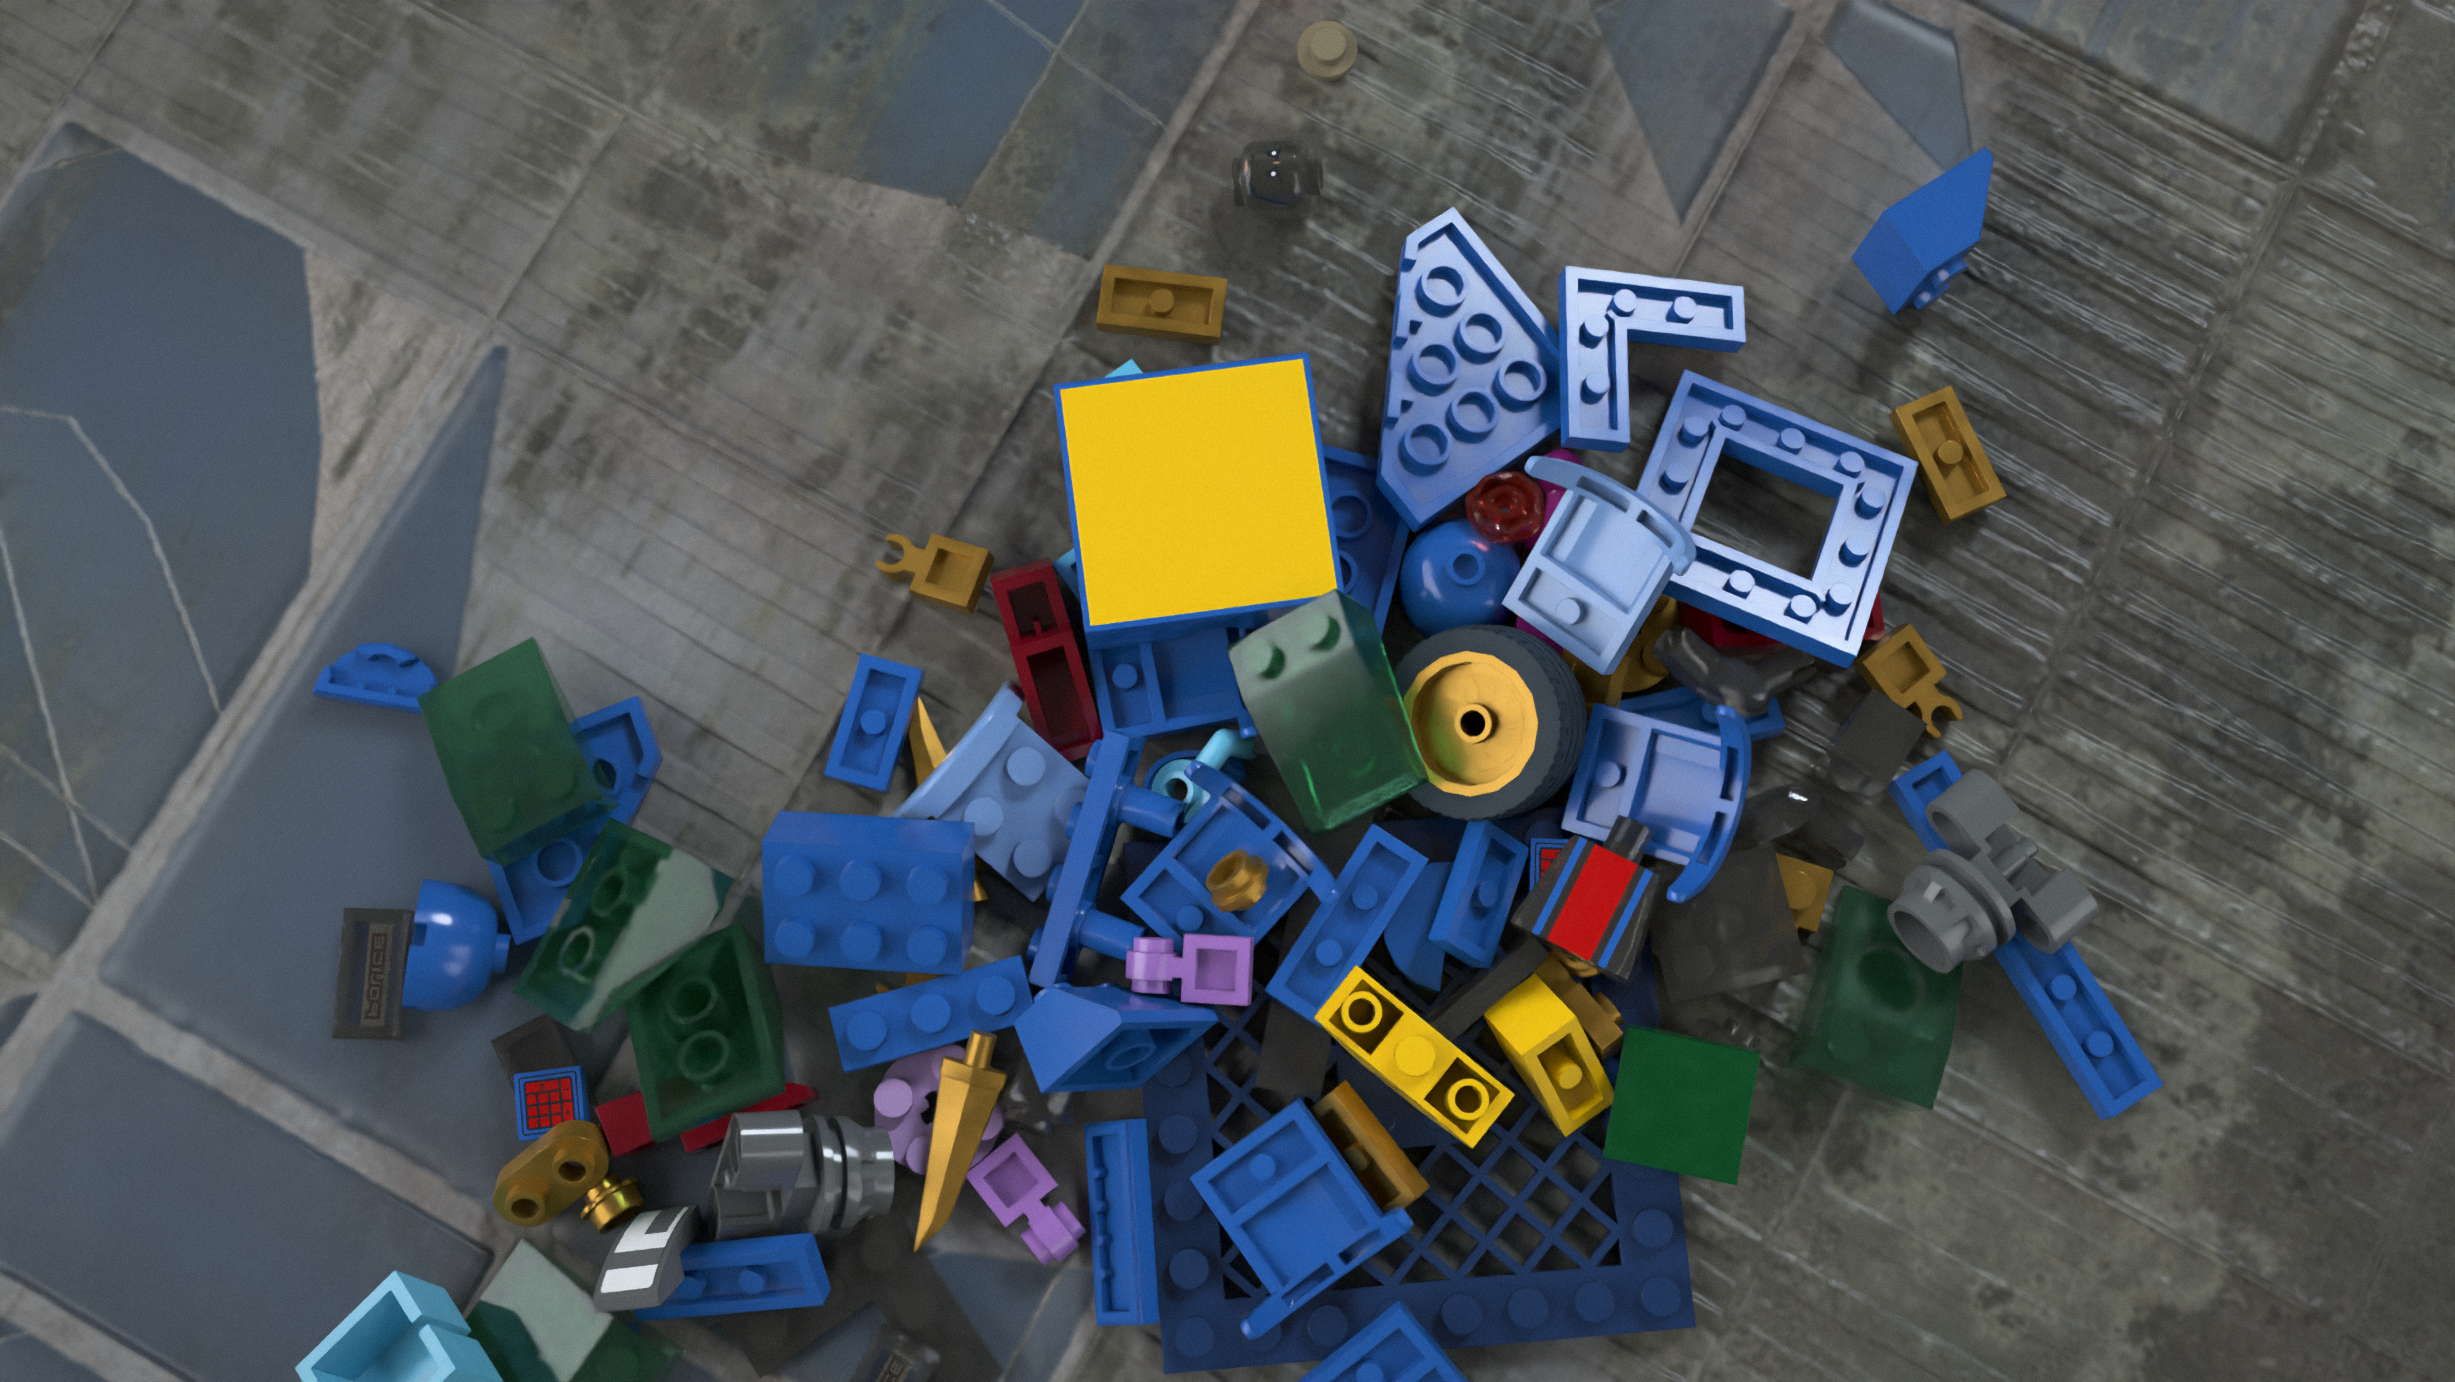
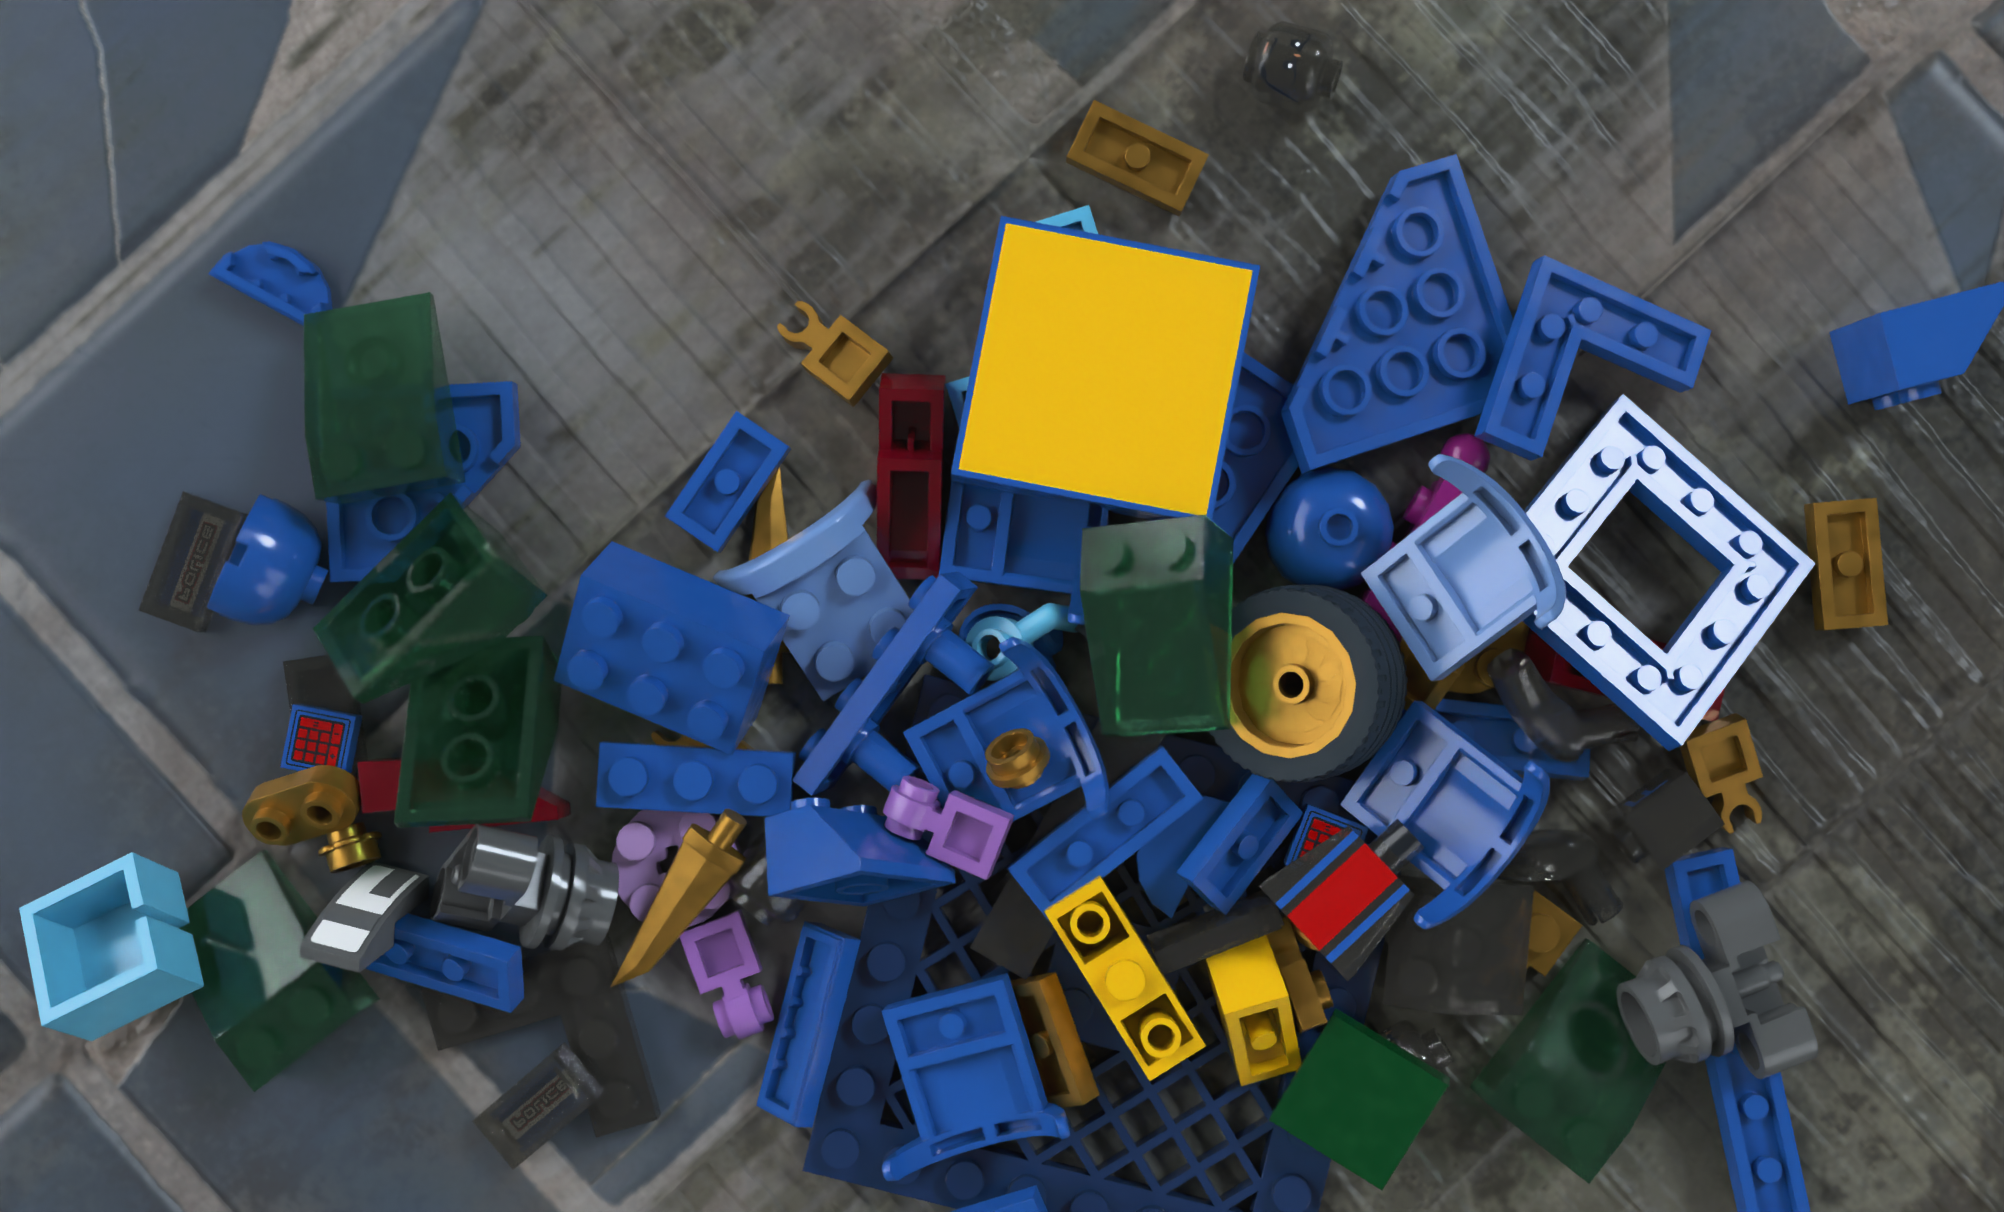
camera: 25 degrees right, 10 degrees up
(1507, 491) = (1403, 462): clear red plate -> none

